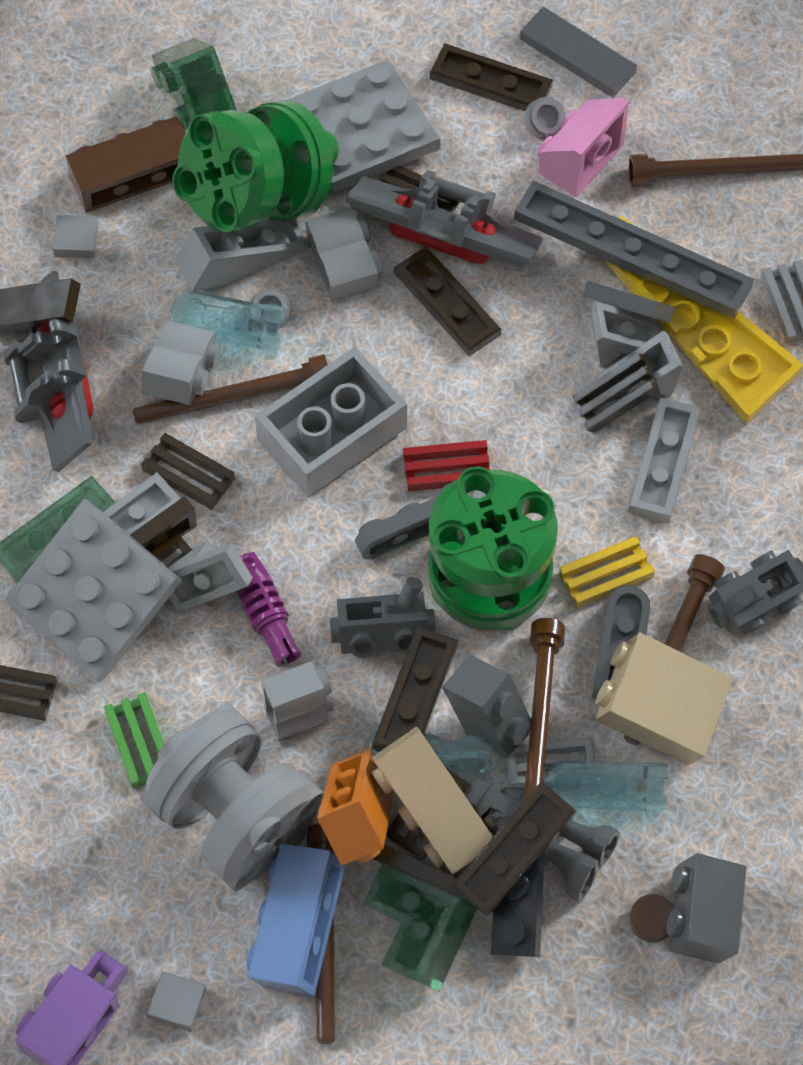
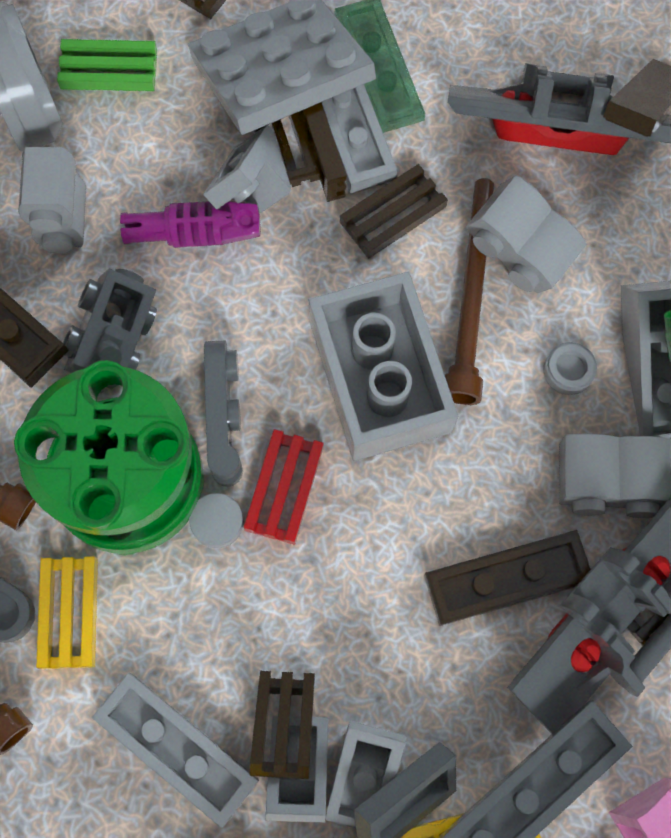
camera: 110 degrees right, 10 degrees up
(230, 318) = (565, 312): clear light blue plate -> none

